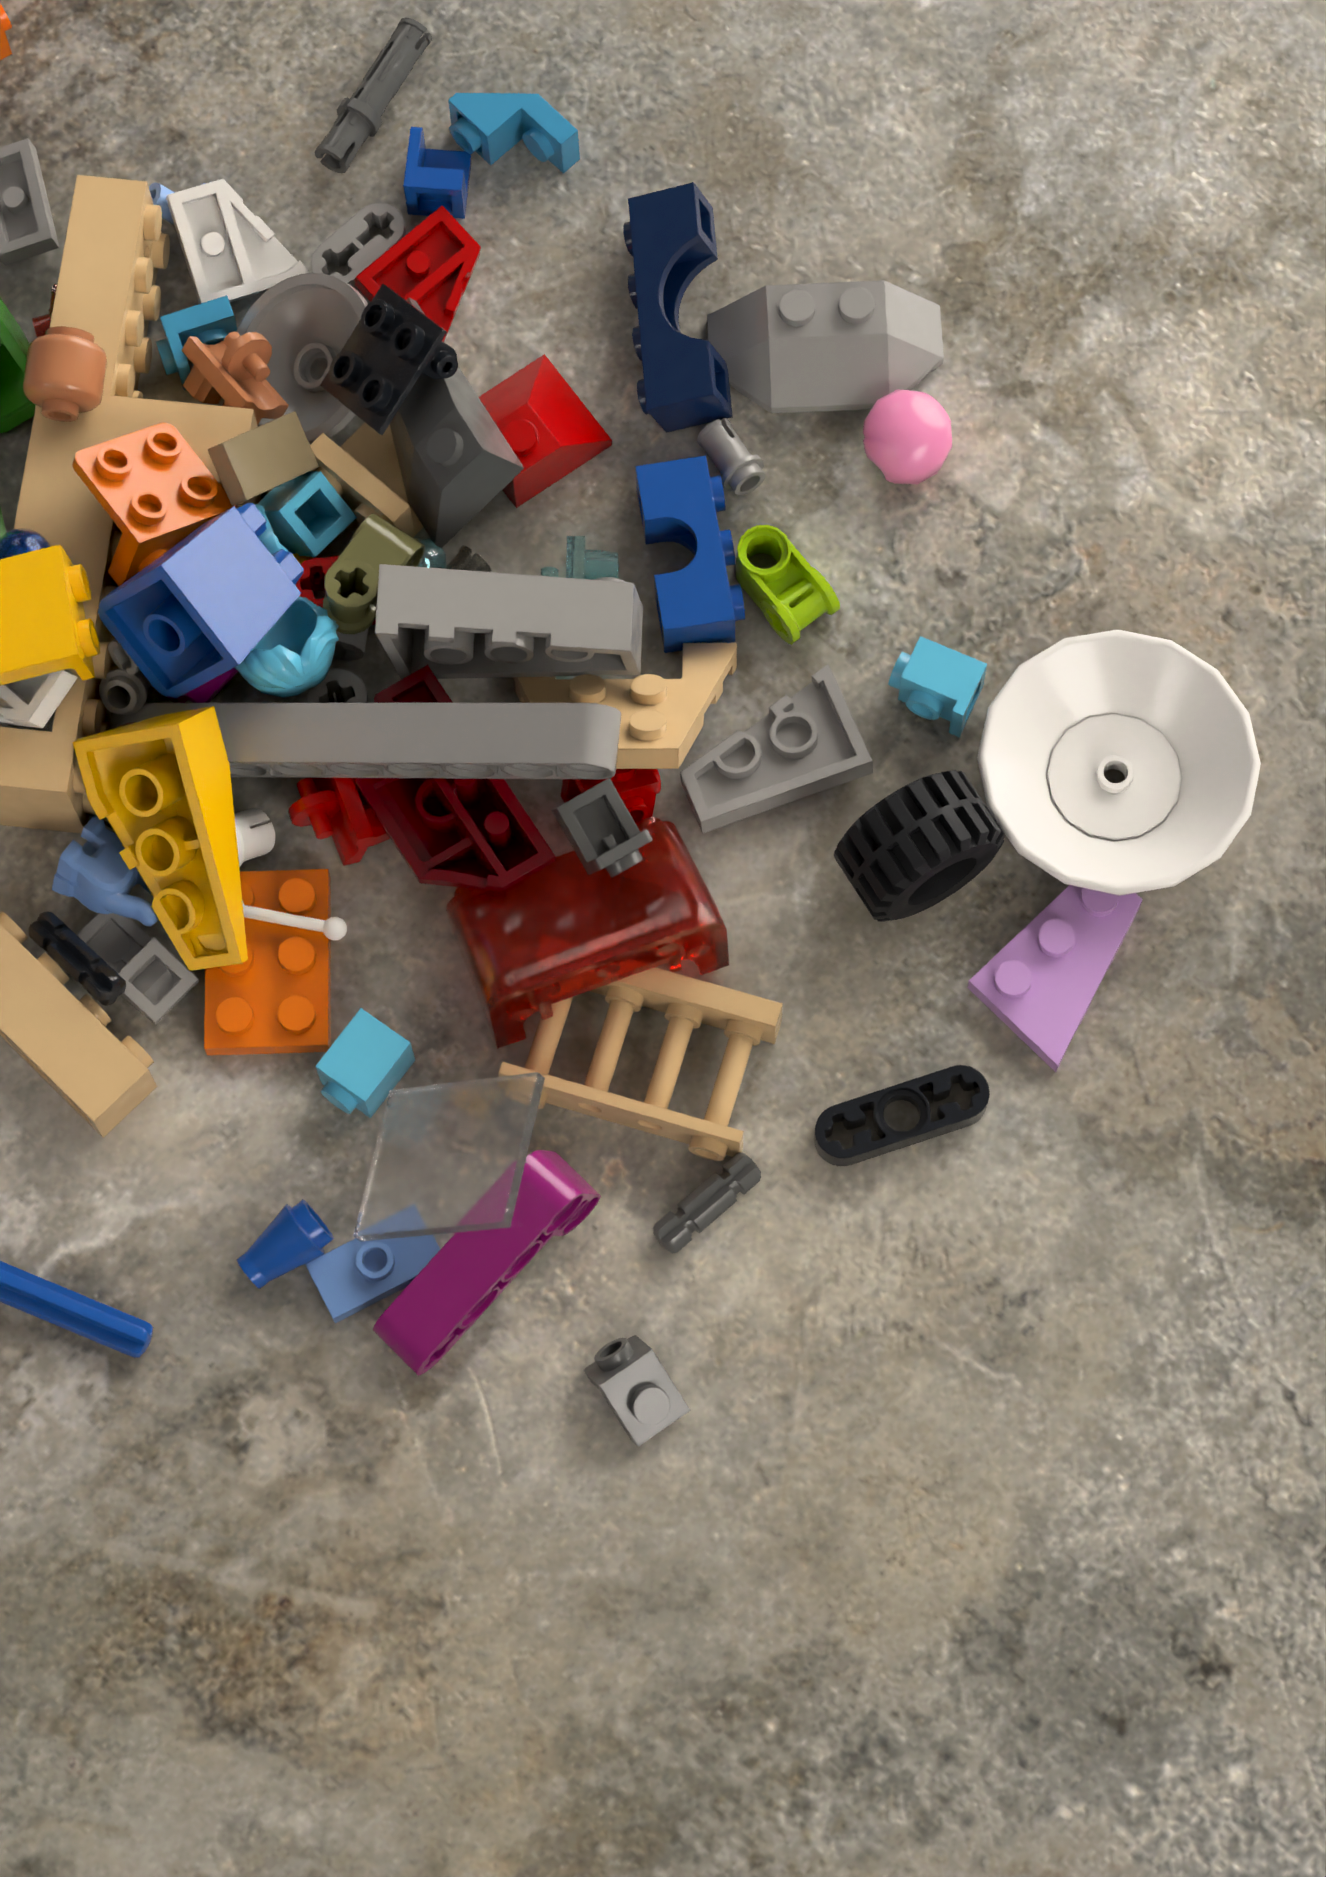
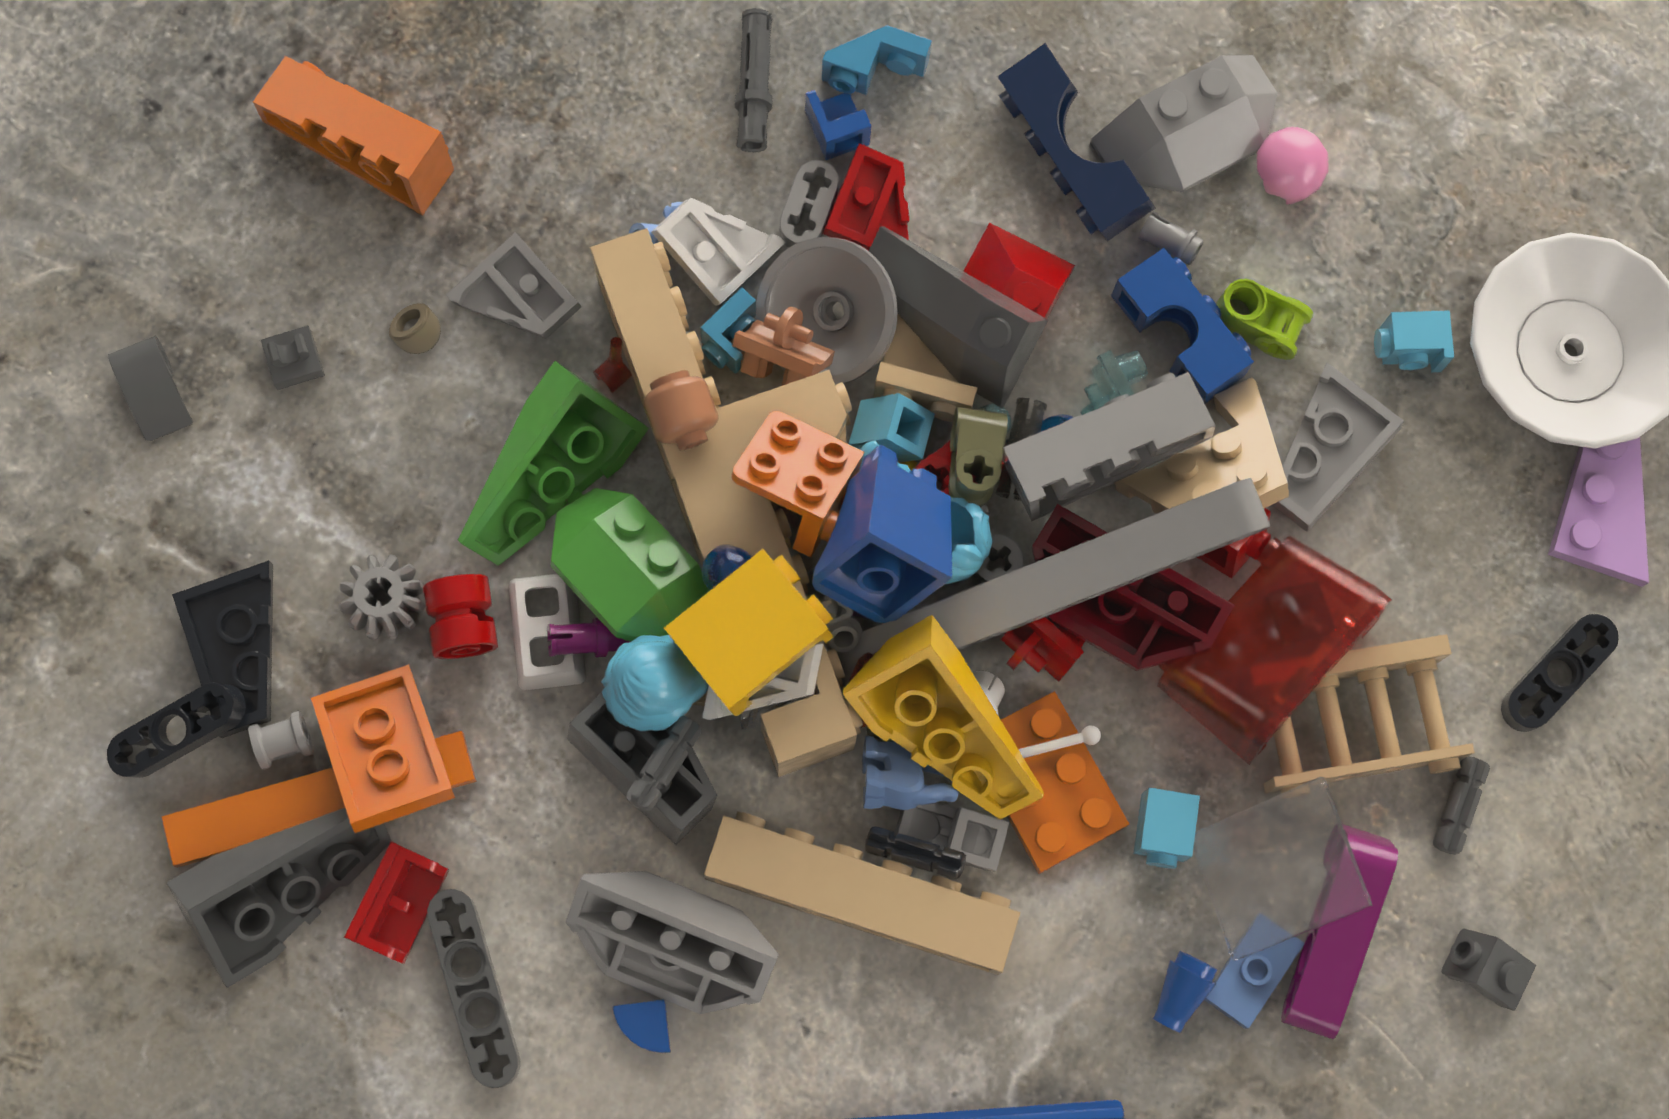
camera: 35 degrees left, 5 degrees up
(263, 458) = (859, 405): dark tan tile -> none
(386, 359) = (909, 284): black hinge -> none
(602, 830) = (1265, 571): dark grey bracket -> none
(919, 845) = (1483, 470): black tyre -> none

